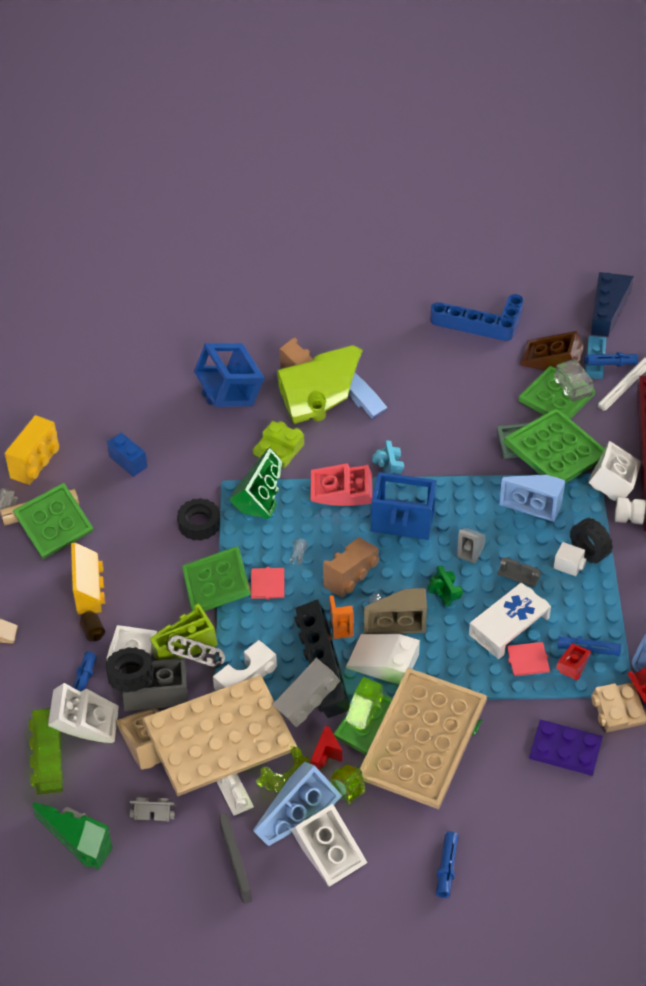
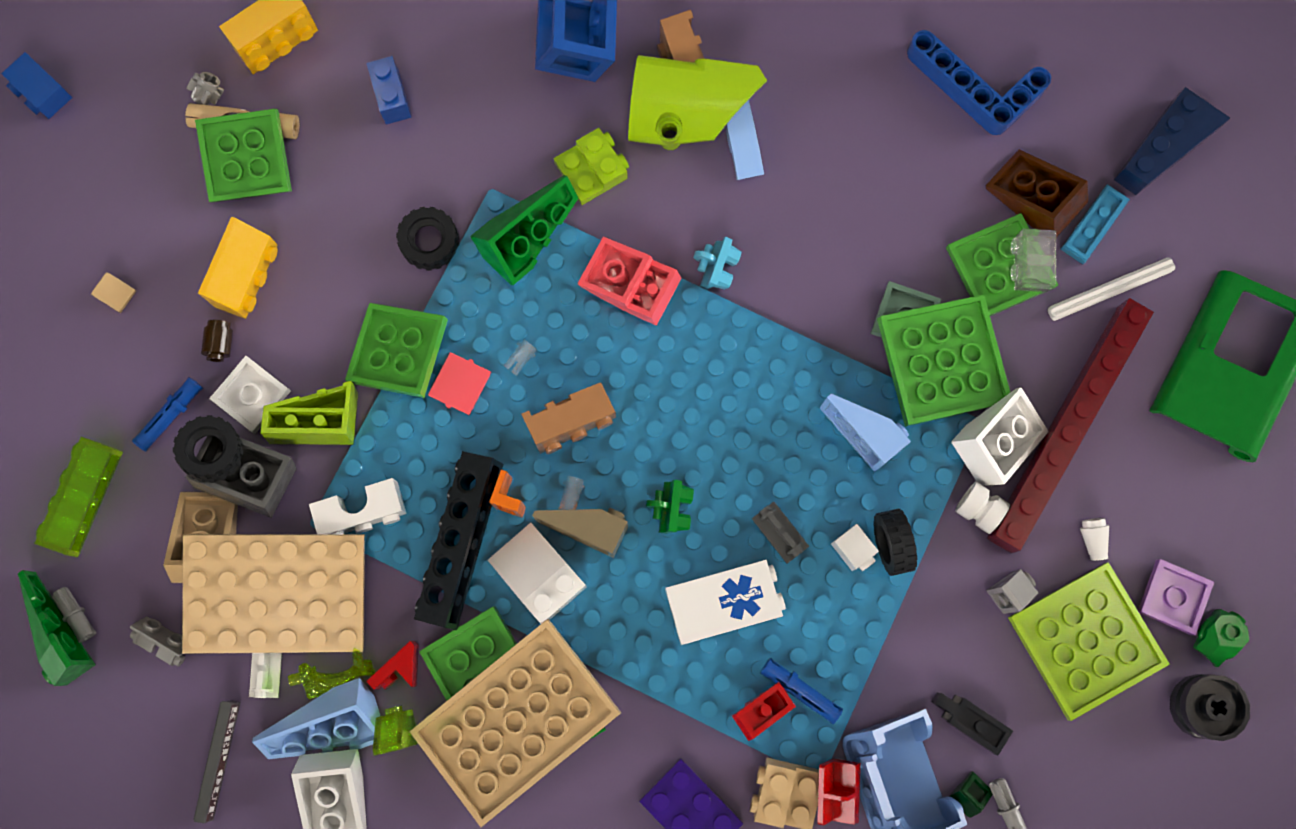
camera: 25 degrees right, 30 degrees up
(83, 714) = (137, 472): white slope -> none
(211, 650) = (306, 441): beam -> none
(306, 692) = (403, 593): light grey brick -> none
(364, 703) = (470, 638): clear neon green slope -> none
(402, 517) = (679, 365): blue piece -> none
(470, 545) = (741, 460): light grey slope -> none
(528, 659) = (717, 666): coral piece -> none
(618, 359) = (1138, 253): blue pin -> none

